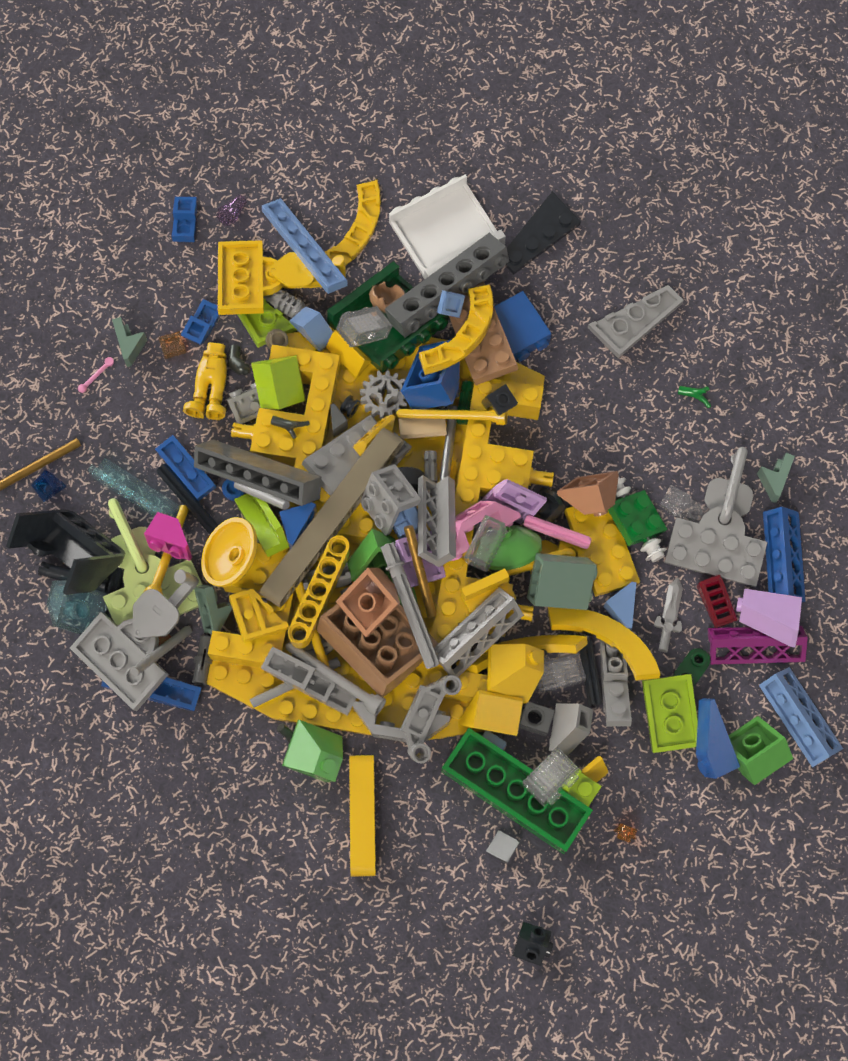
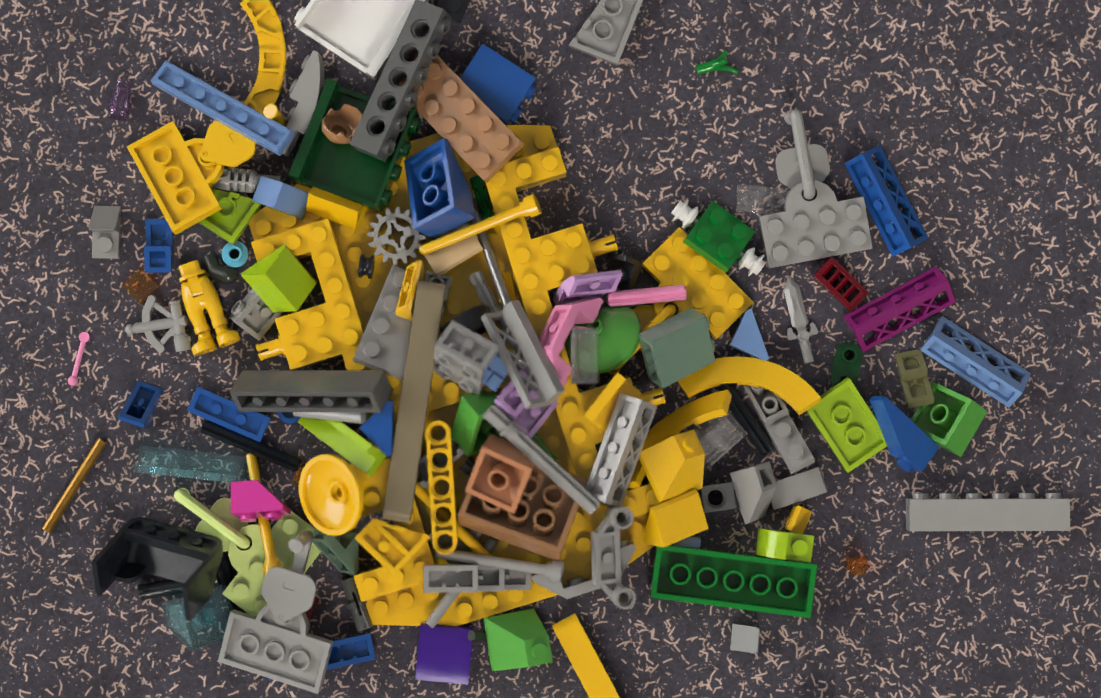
camera: 30 degrees left, 15 degrees up
(49, 484) = (97, 500): clear blue slope -> none
(122, 429) = (141, 405): none -> blue slope
(129, 344) = (98, 312): sand green slope -> none
(160, 651) = (313, 622): light grey bar -> none
(168, 296) = (106, 232): none -> light grey slope
(182, 381) = (176, 322): none -> light grey piece
(184, 219) = (74, 136): blue slope -> none
(250, 735) = (444, 654): none -> dark purple slope
(253, 348) = (243, 254): none -> medium azure plate
(276, 337) = (250, 229): dark tan plate -> none
(288, 424) = (316, 325): pearl dark grey bar -> none
(339, 421) = (362, 288): dark grey slope -> none
(364, 326) = (337, 174): clear brick -> none
(368, 265) = (306, 93): none -> light grey slope
(420, 571) = (534, 418): pearl gold bar -> none
(450, 303) = (417, 104): medium blue tile -> none
(467, 337) = (454, 136): yellow tile -> none
(500, 400) = (524, 192): black bracket -> none
(551, 777) = (763, 556): clear brick -> none
(591, 493) = (661, 236): nougat slope -> none
(606, 744) = (798, 488): none -> light grey slope
(743, 705) = (914, 378): none -> olive slope
(755, 844) = (987, 514): none -> light grey brick
(771, 614) = (902, 274): lavender slope -> none
(775, 480) = (842, 127): sand green slope -> none

